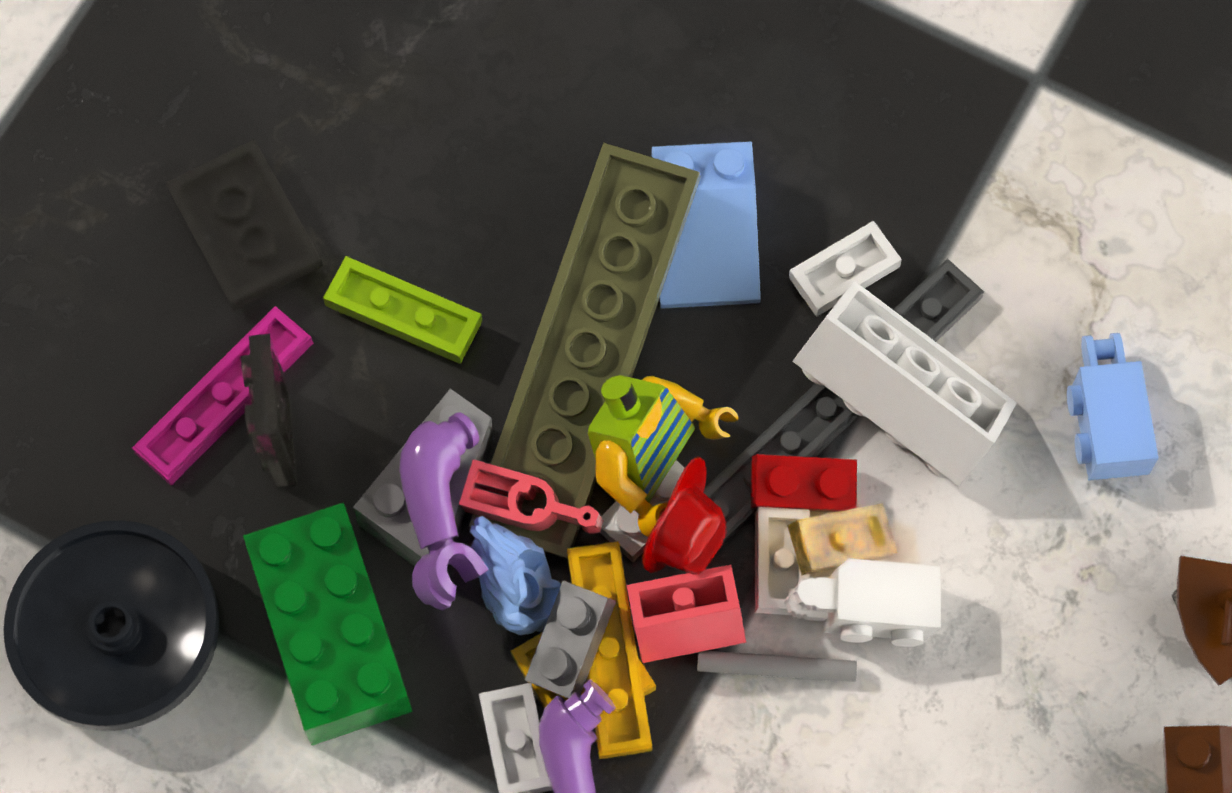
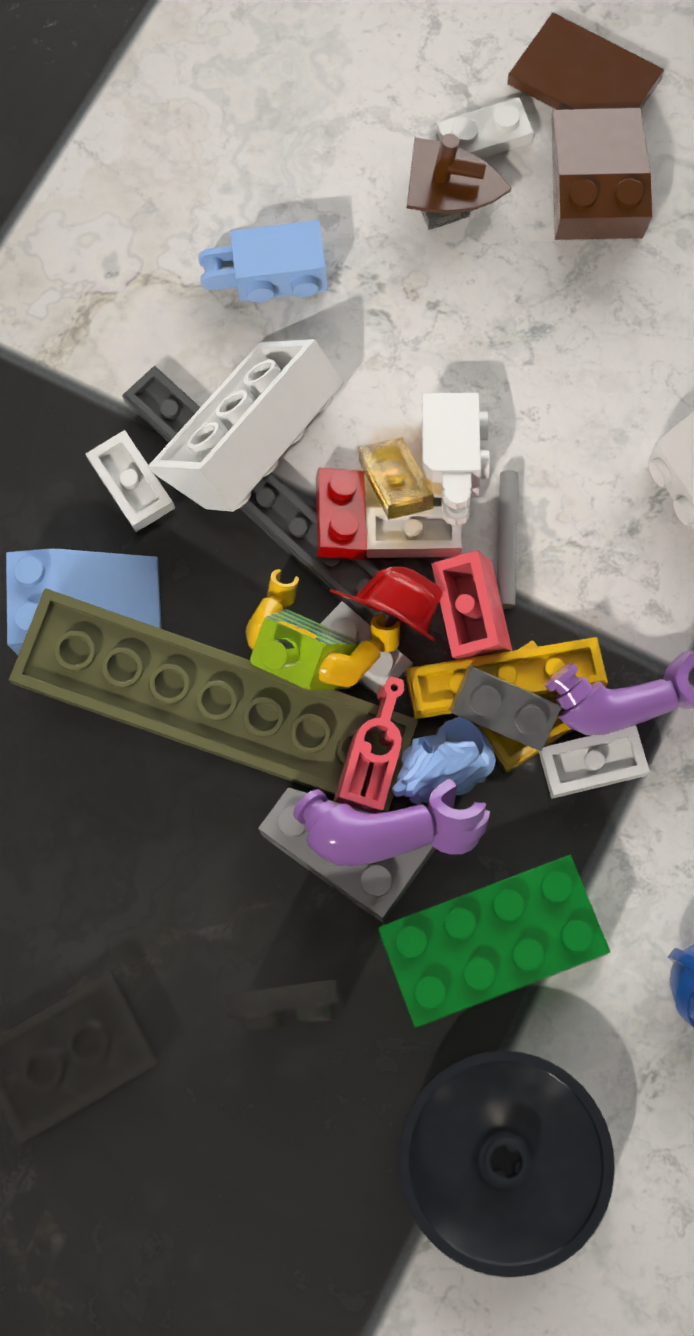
camera: 85 degrees left, 5 degrees up
(215, 401) = (251, 1069): dark pink tile -> none
(403, 309) = (163, 888): lime plate -> none

